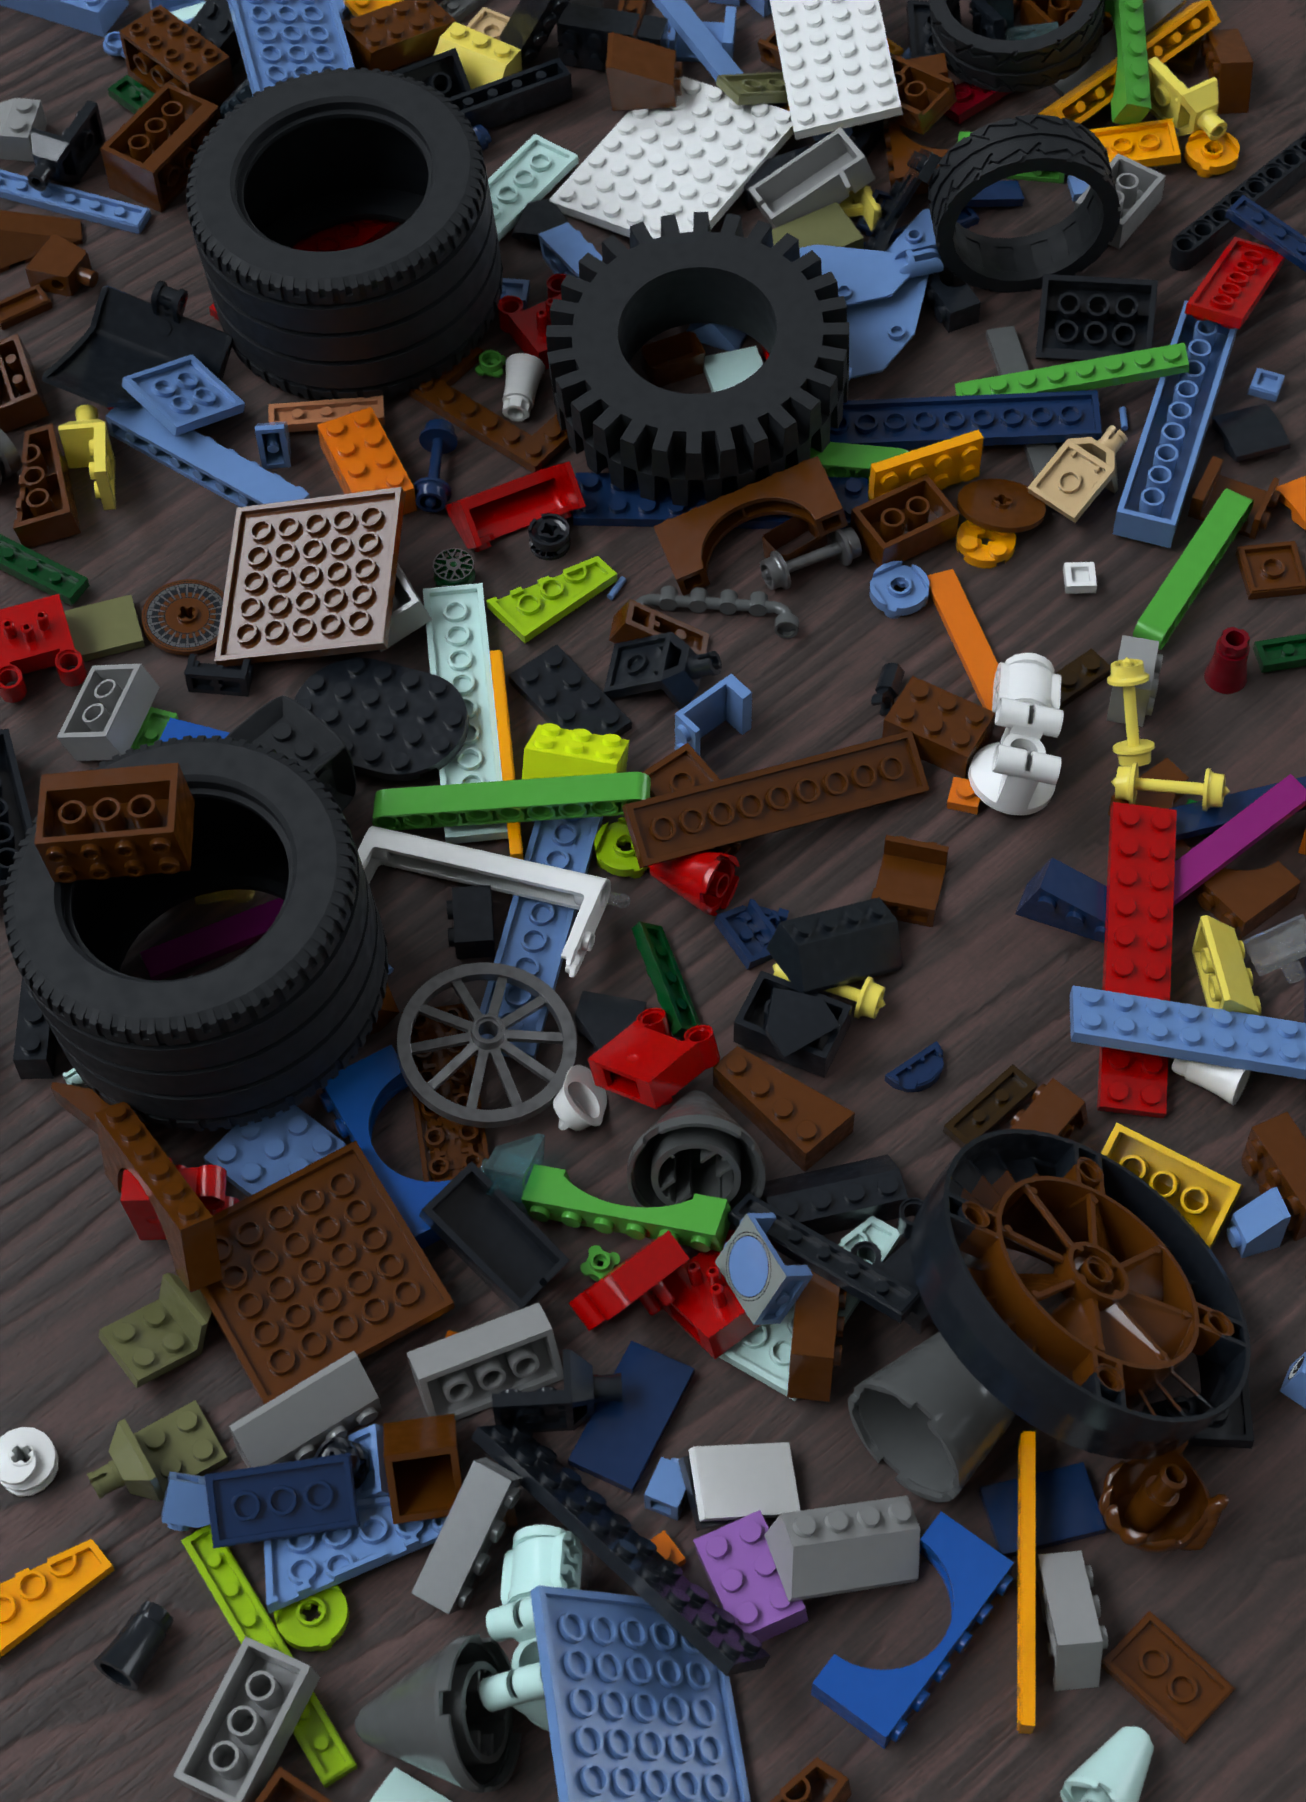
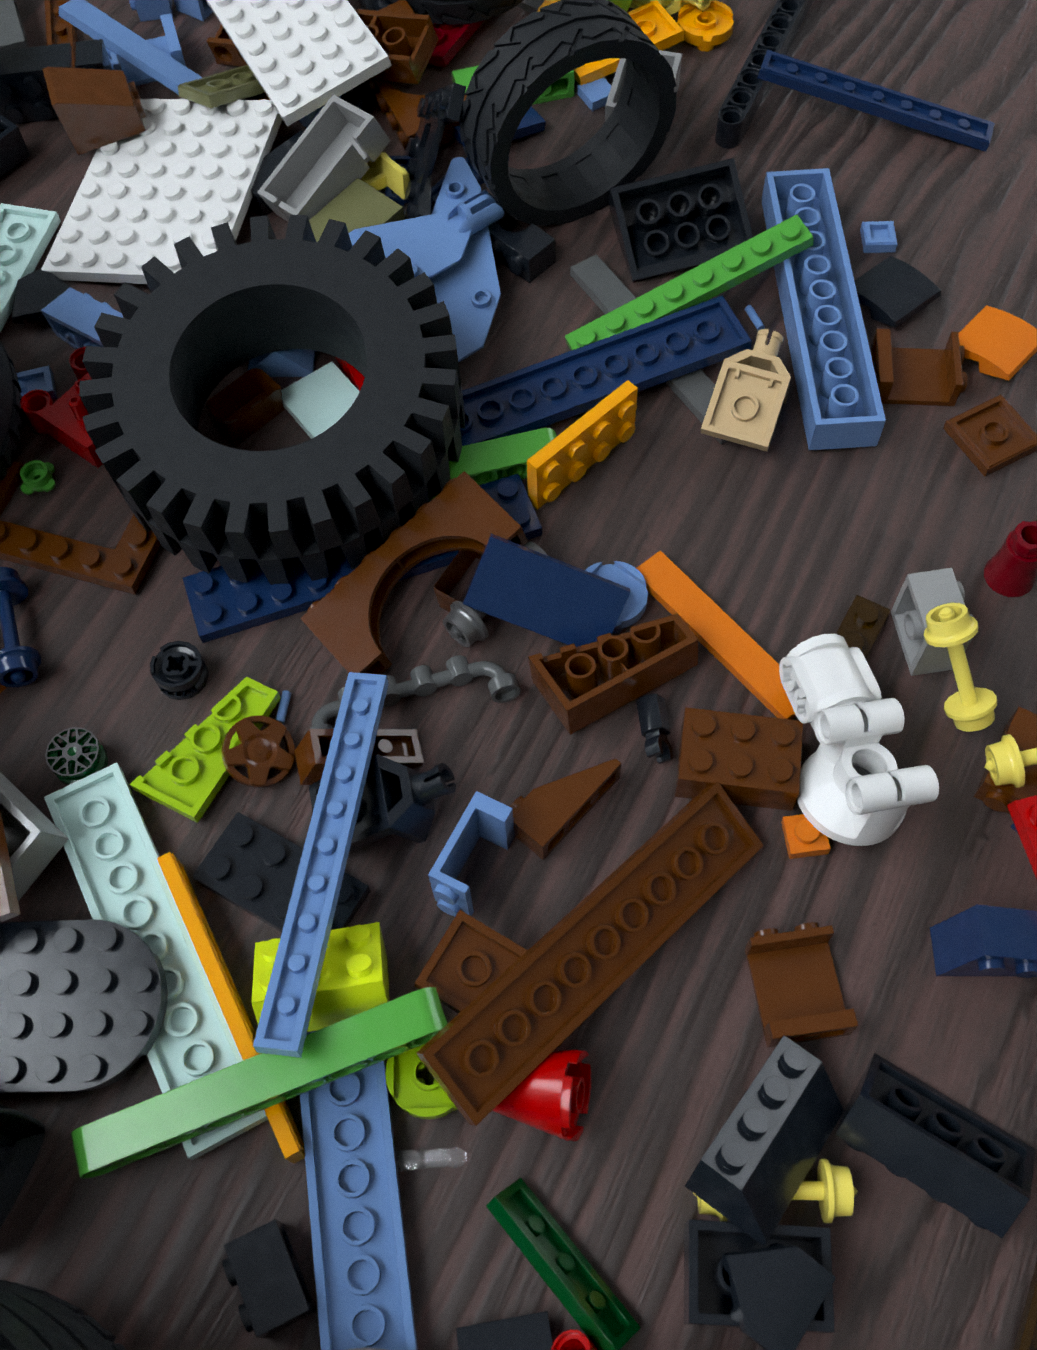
camera: 20 degrees left, 5 degrees up
(503, 873) = (261, 1193): white piece -> none
(515, 505) = (121, 646): red windscreen -> none
(521, 385) = (81, 492): white plant -> none
(587, 608) = (258, 751): none -> reddish brown wheel
(608, 678) = (321, 869): none -> medium blue plate
(750, 931) = (639, 1137): dark blue slope -> none
(792, 715) = (557, 807): none -> reddish brown slope
(843, 567) = (544, 594): none -> dark blue tile
(874, 638) = (614, 670): none -> reddish brown wedge
(905, 521) = (586, 512): reddish brown brick -> none
(919, 1071) = (938, 1267): dark blue tile -> none
(954, 1000) = (939, 1146): none -> black slope
(982, 555) = (684, 487): light orange plate -> none
(1000, 506) = (679, 458): reddish brown piece -> none
(1079, 577) = (802, 513): white plate -> none
(1194, 567) = (918, 465): bright green beam -> none
(1235, 283) = (807, 141): red plate -> none

